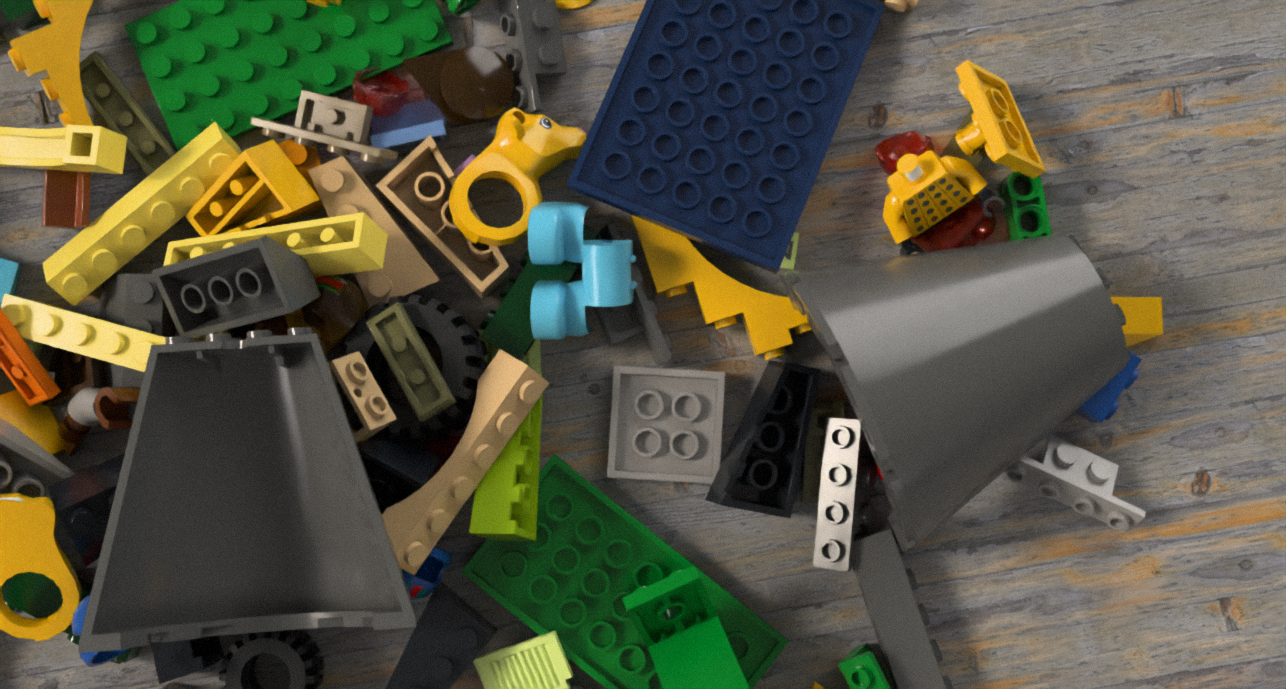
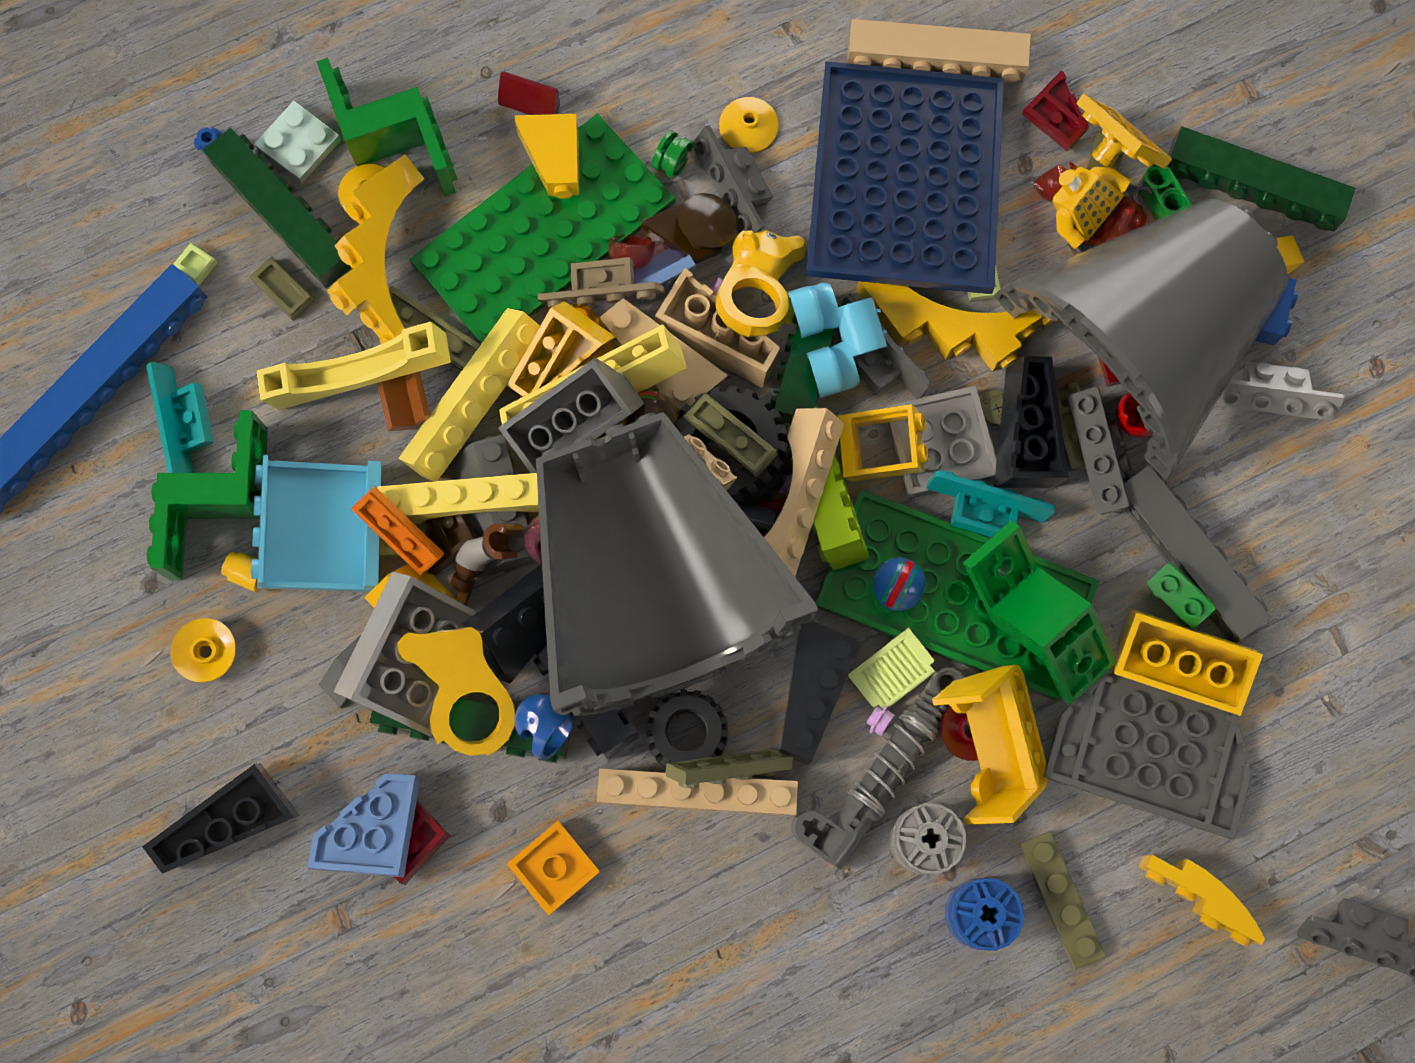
camera: 20 degrees left, 10 degrees down
(557, 582) = (899, 584): none -> blue helmet
(559, 404) = (851, 443): none -> yellow window
(688, 524) = (984, 507): none -> teal bracket
(737, 399) = (992, 406): none -> olive piece
(932, 65) = (1057, 113): none -> dark red wing
(1144, 220) = (1259, 179): none -> dark green brick

